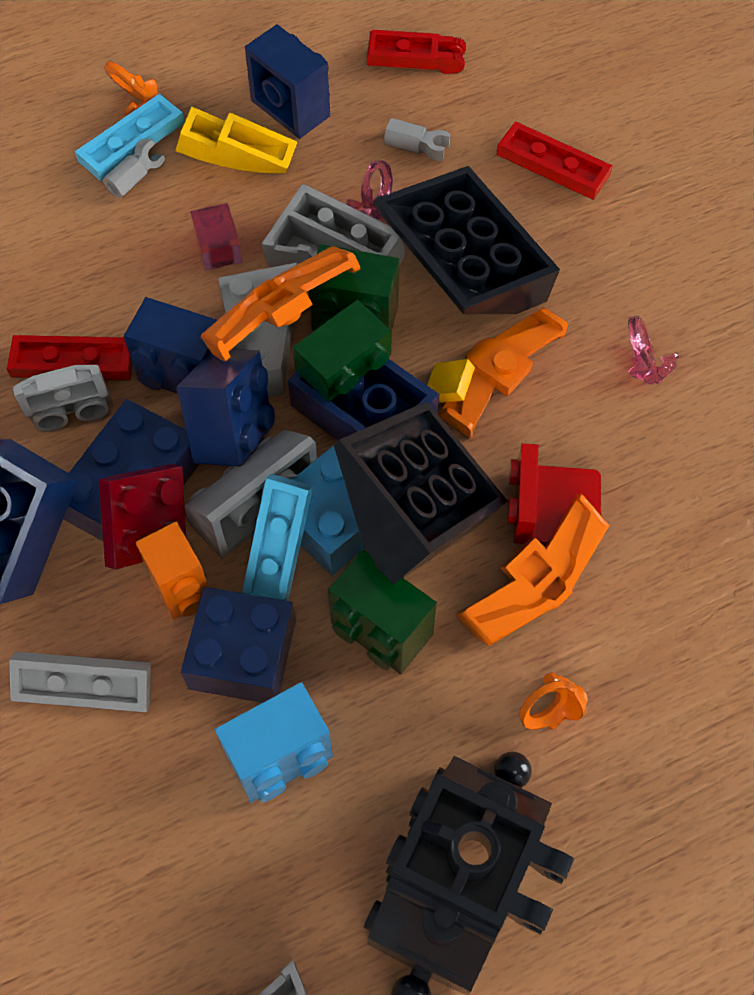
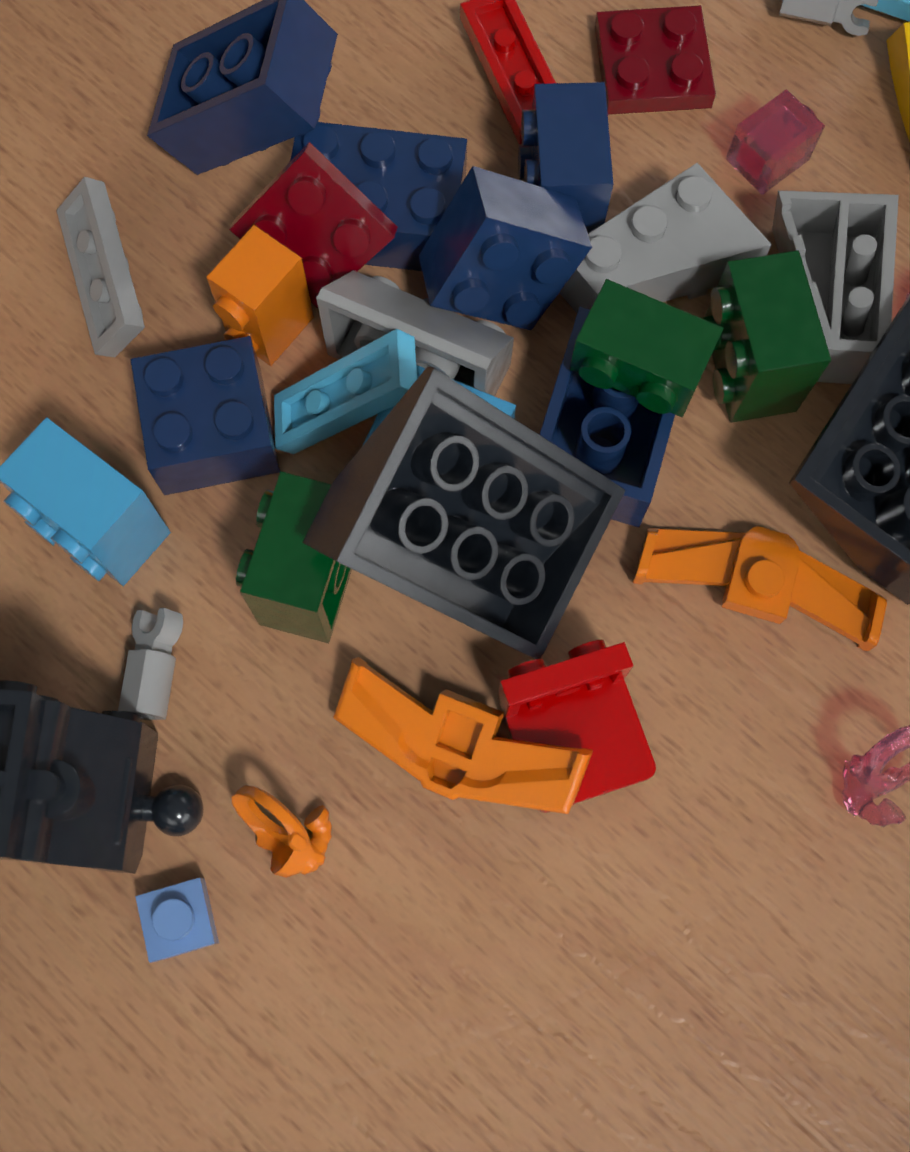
camera: 65 degrees right, 10 degrees up
(56, 393) = (447, 69): light grey slope -> none
(112, 278) = (654, 59): none -> dark red plate
(277, 300) = (675, 232): orange plate -> none
(405, 750) = (151, 665): none -> light grey bar
(451, 379) = (700, 519): yellow tile -> none
(588, 796) = (177, 920): none -> medium blue plate

